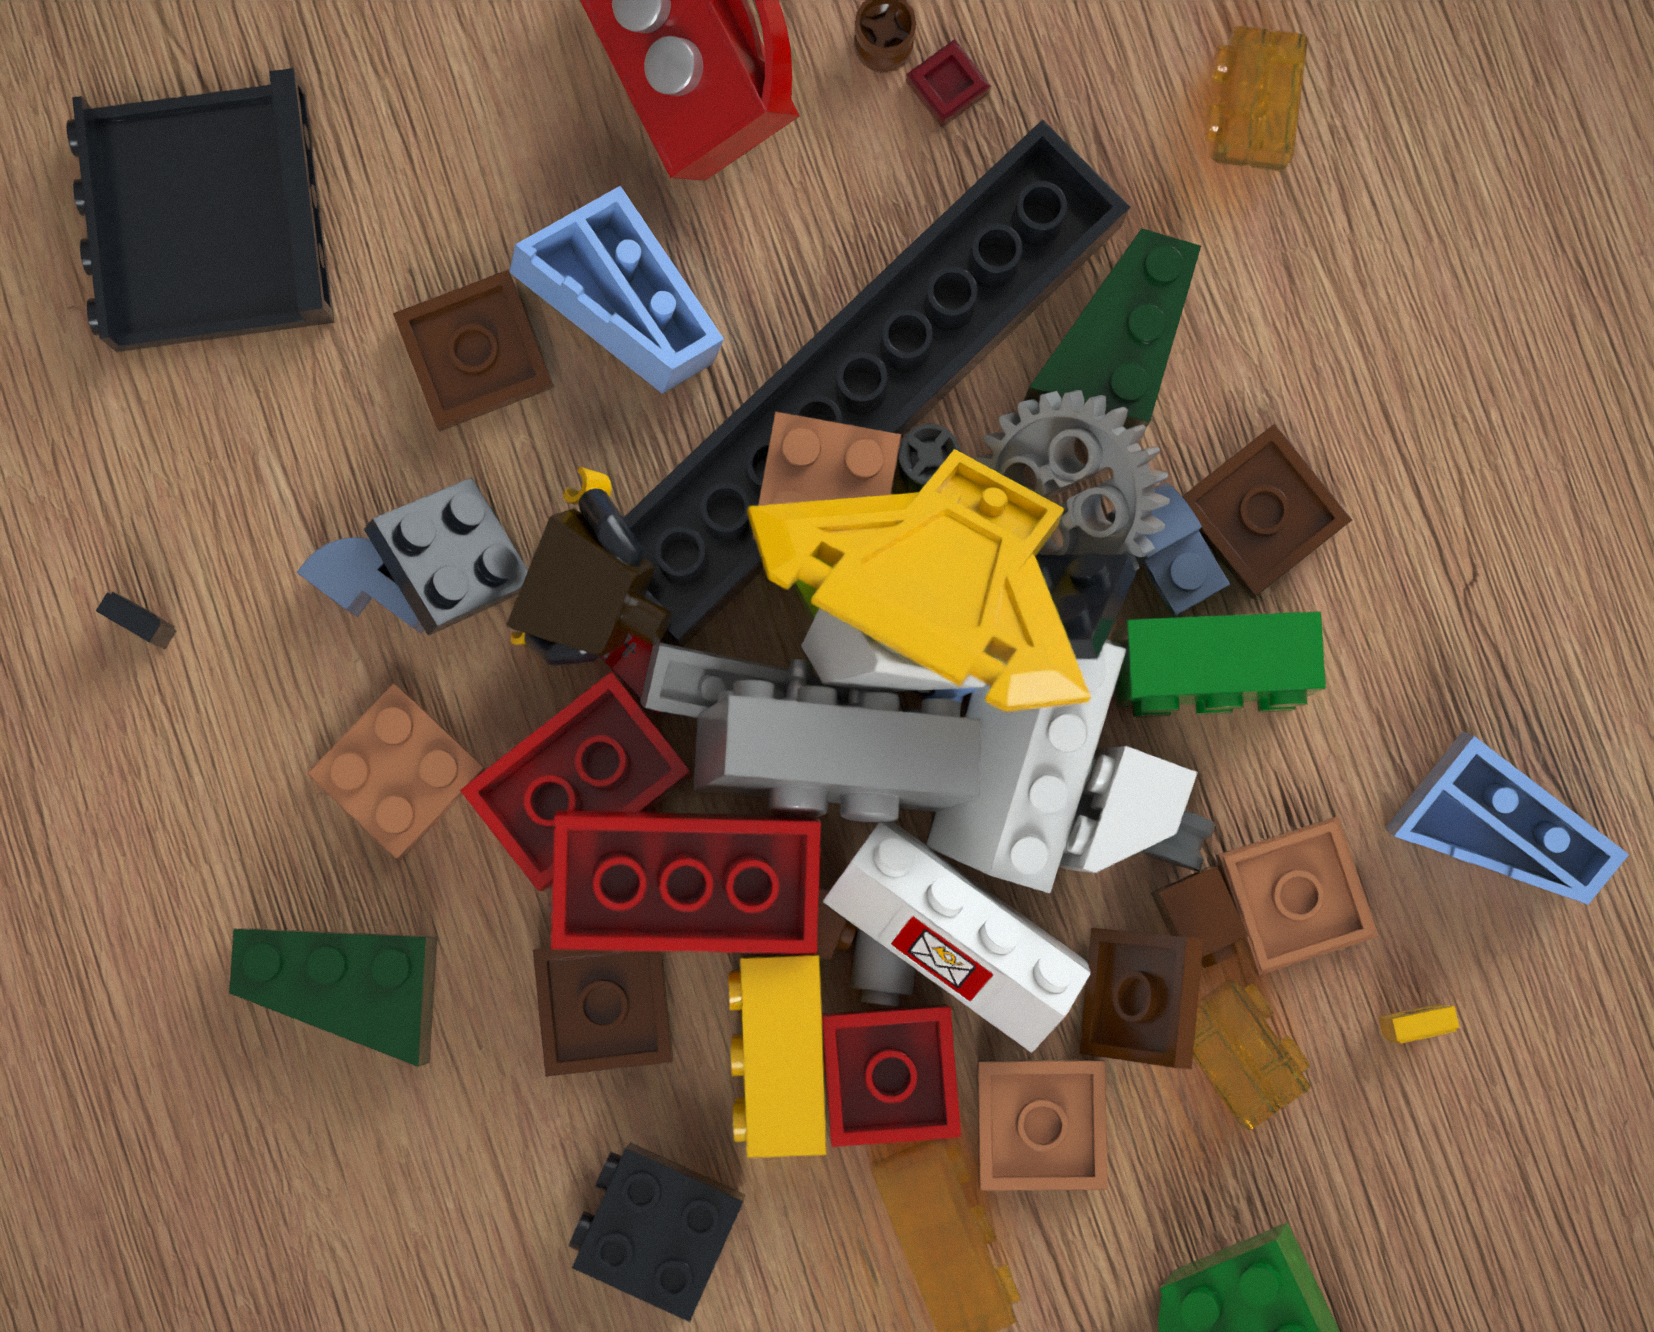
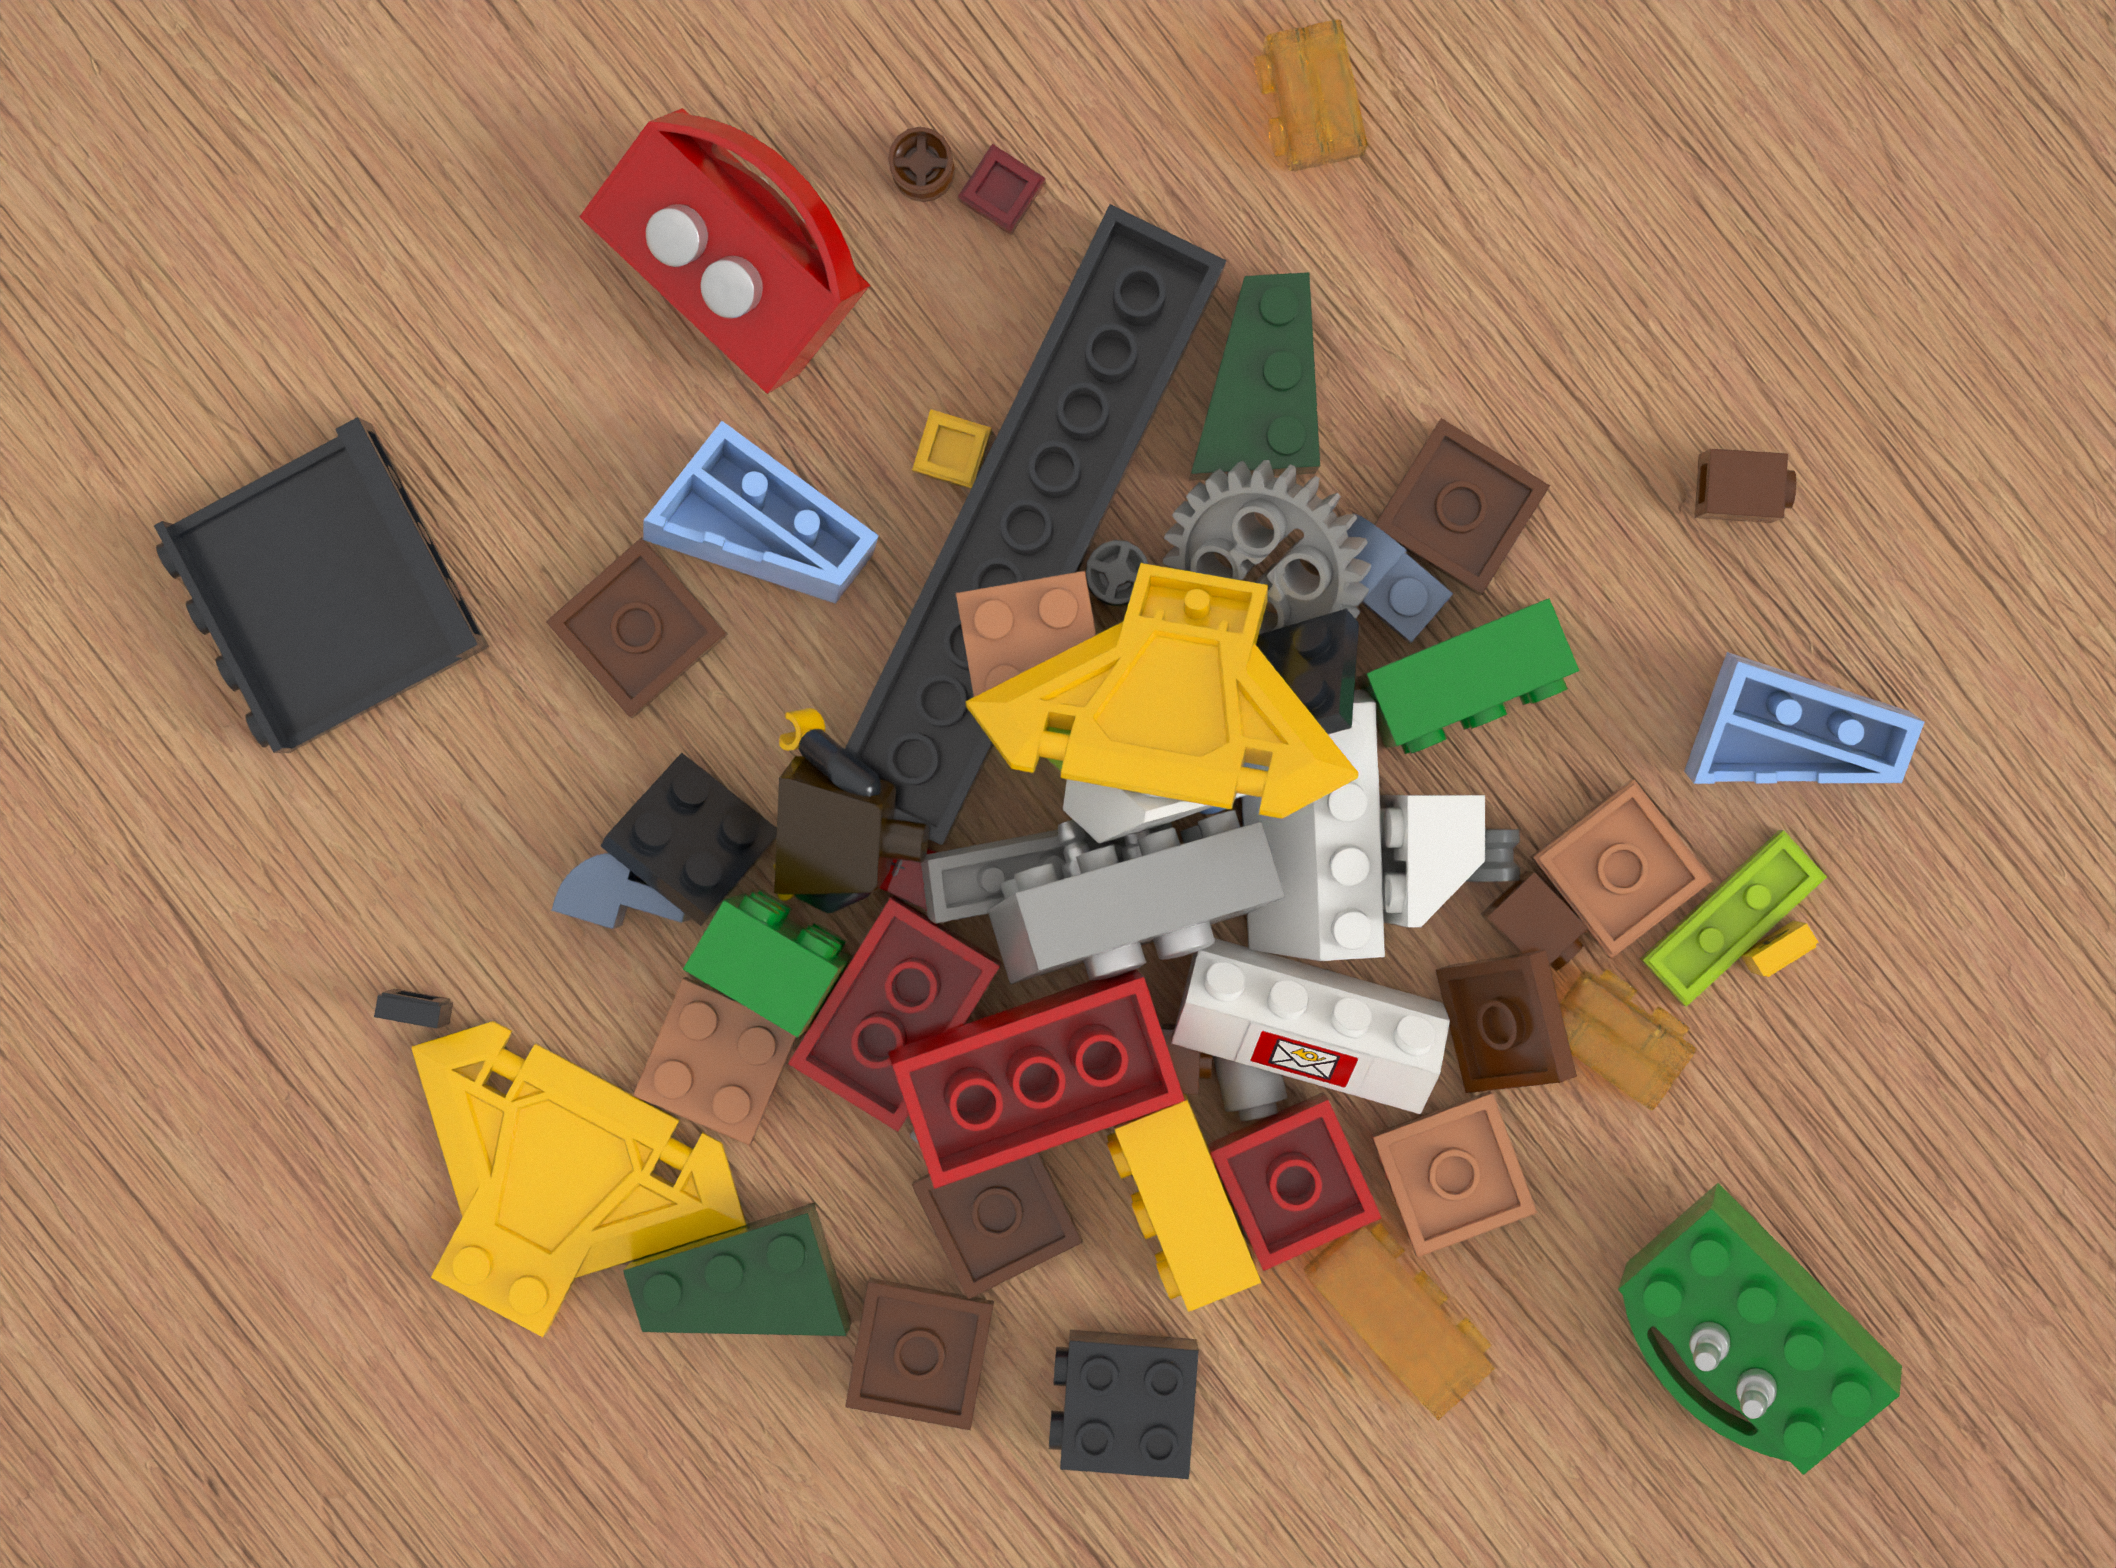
camera: 20 degrees left, 5 degrees up
(210, 823) = (558, 1174): none -> yellow plate
(470, 682) = (769, 960): none -> green brick
(481, 1113) = (919, 1354): none -> reddish brown plate
(817, 293) = (951, 449): none -> yellow tile
(1384, 980) = (1733, 917): none -> lime tile
(1529, 584) = (1744, 486): none -> reddish brown brick

